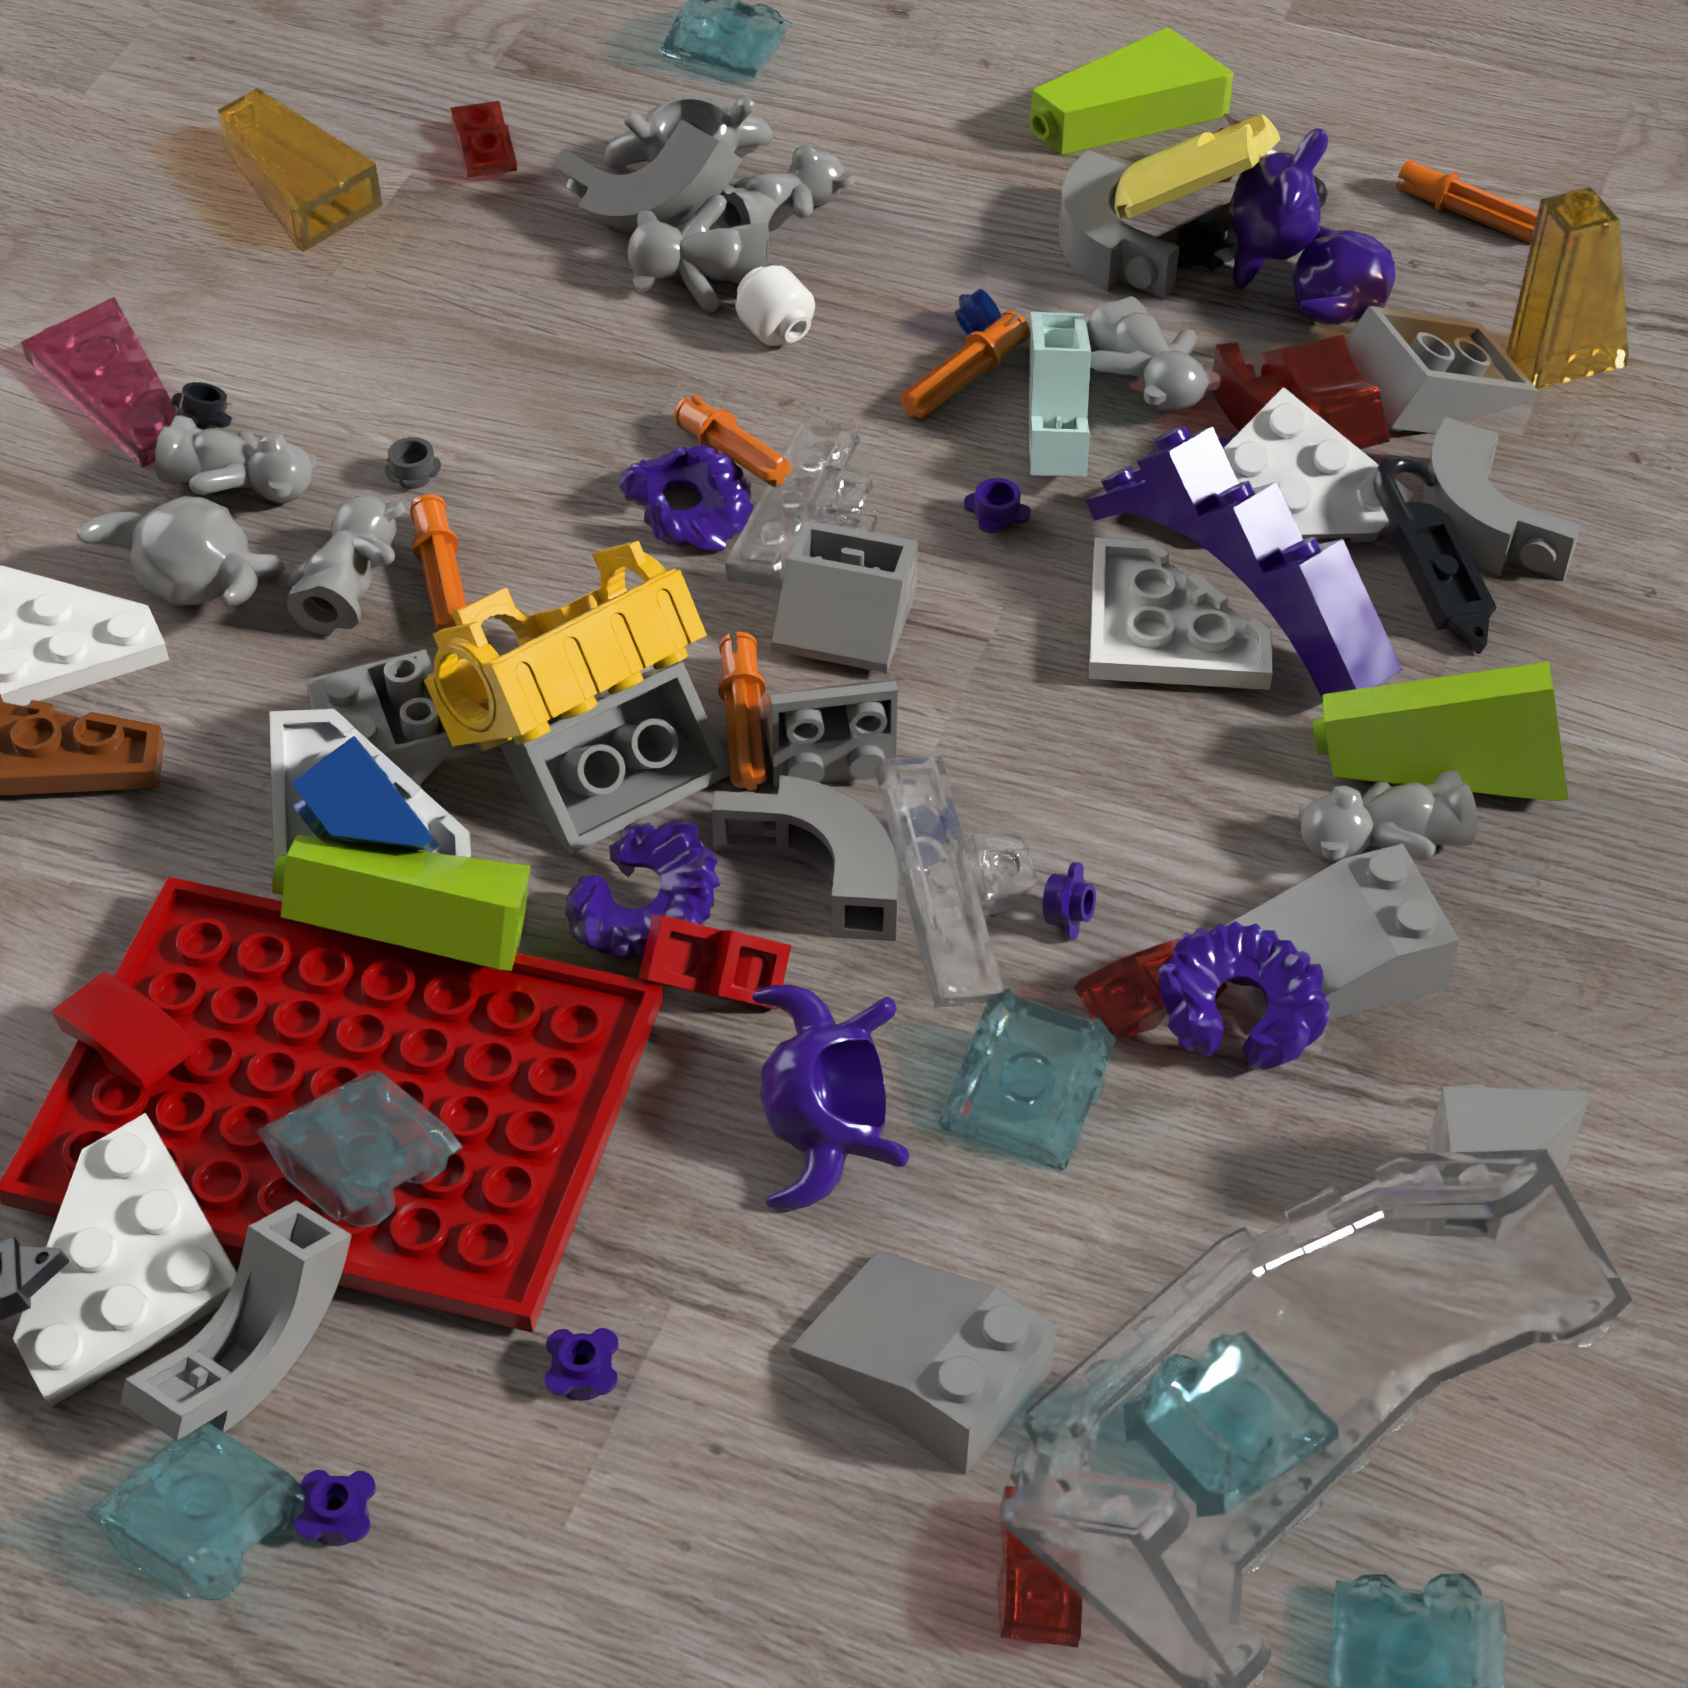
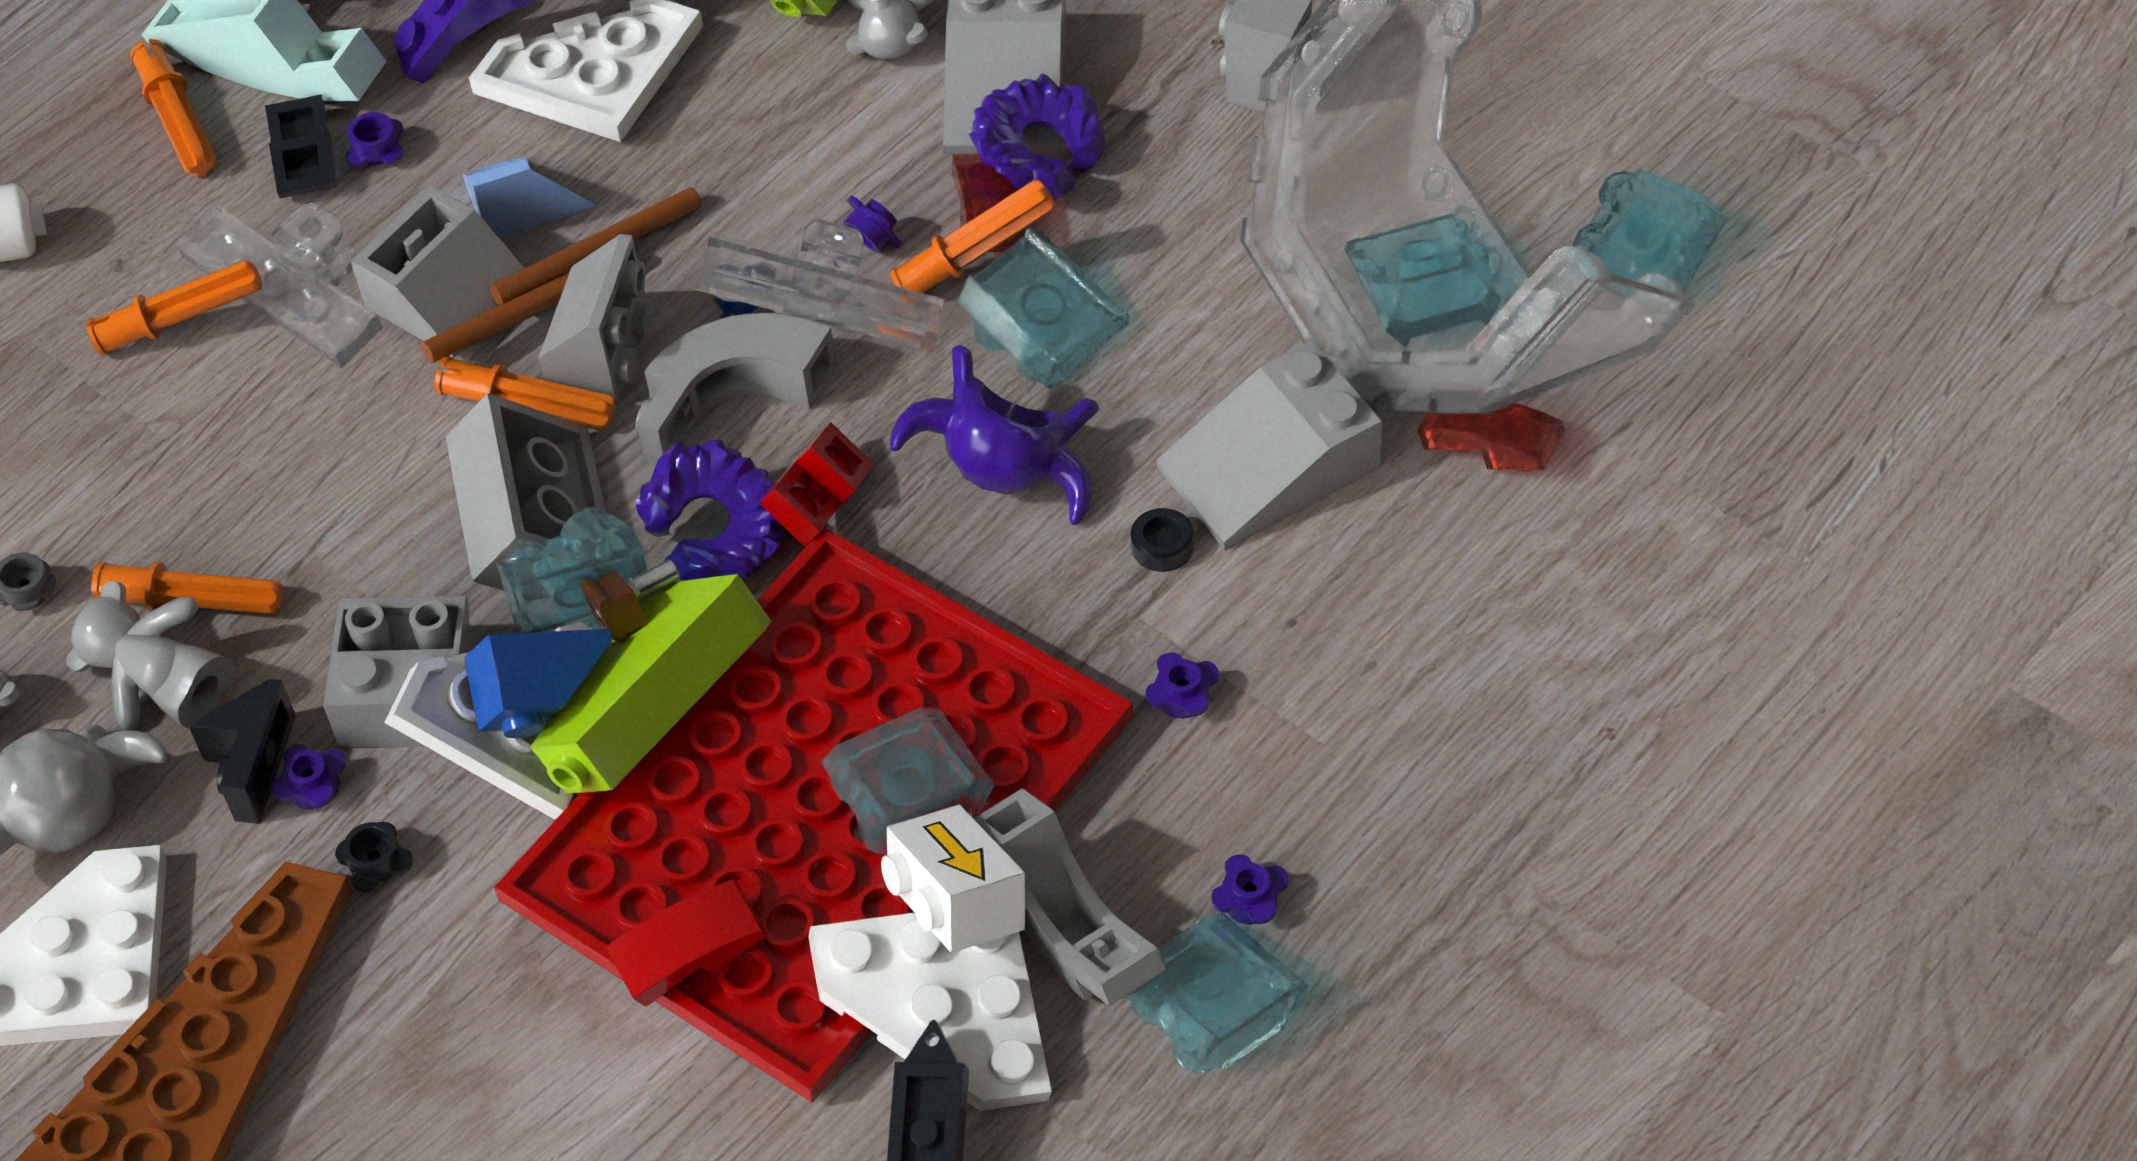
camera: 65 degrees left, 5 degrees up
(194, 786) = (367, 841): none -> black plate
(200, 1215) = (955, 878): none -> white brick
(255, 712) = (309, 791): none -> dark purple plate
(274, 665) = (249, 744): none -> black slope
(482, 839) = (616, 600): none -> reddish brown piece
(517, 807) = (546, 576): none -> clear light blue slope
(562, 651) = (435, 487): yellow piece -> none
(713, 474) = (209, 336): dark purple piece -> none
(774, 1288) = (1162, 539): none -> black tile
(842, 673) = (494, 320): none -> dark orange bar
(944, 701) = (562, 261): none -> dark orange bar
(954, 469) = (301, 146): none -> black slope
(976, 311) = (110, 77): clear blue plate -> none
(977, 621) = (518, 199): none -> light blue slope
(1050, 973) = (974, 238): none -> orange axle

